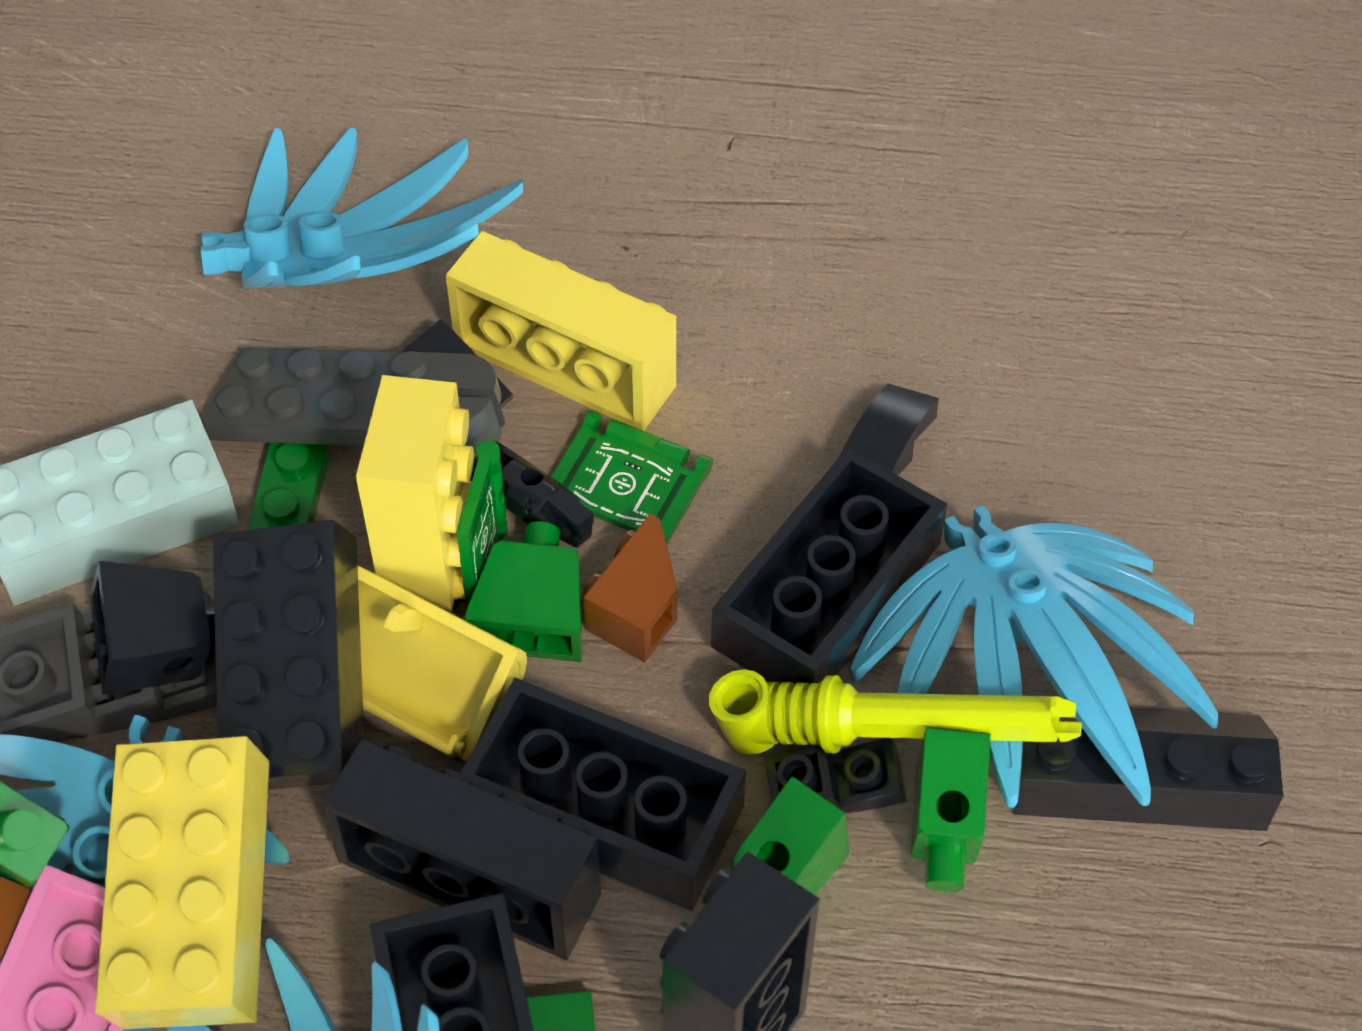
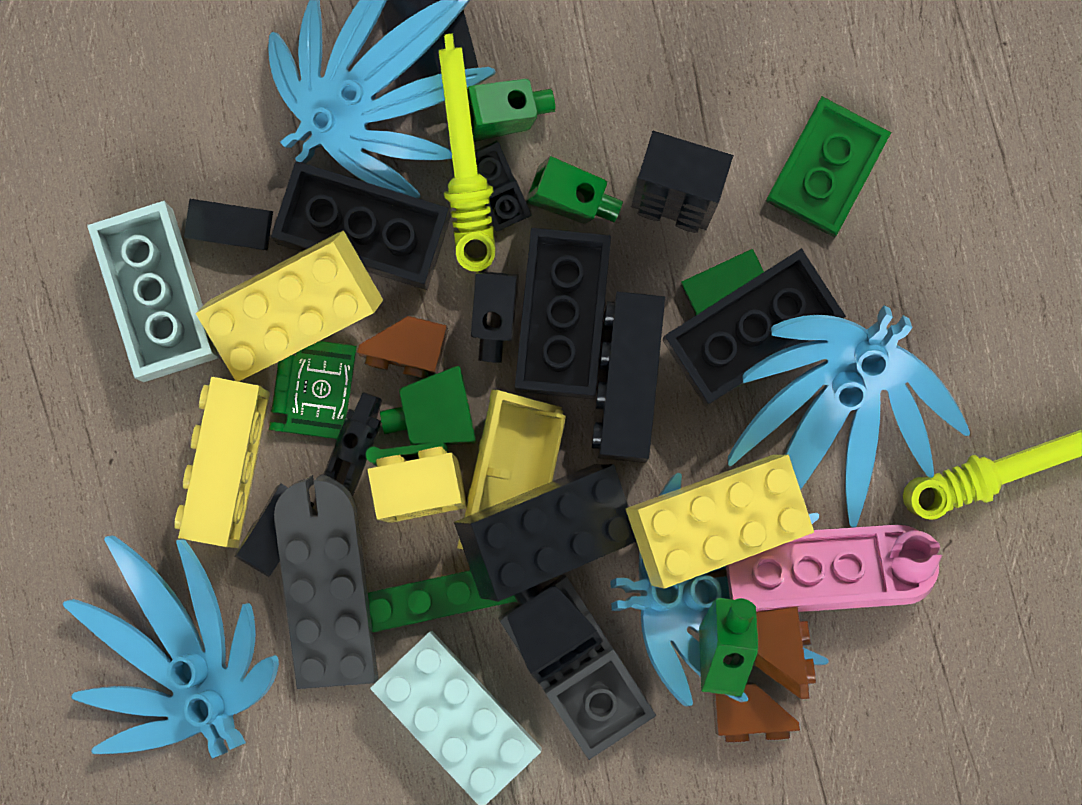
camera: 105 degrees left, 30 degrees up
(648, 691) = (496, 294): none -> black torso
(741, 446) = (290, 306): none -> light yellow brick
(823, 321) = (152, 291): none -> light aqua brick

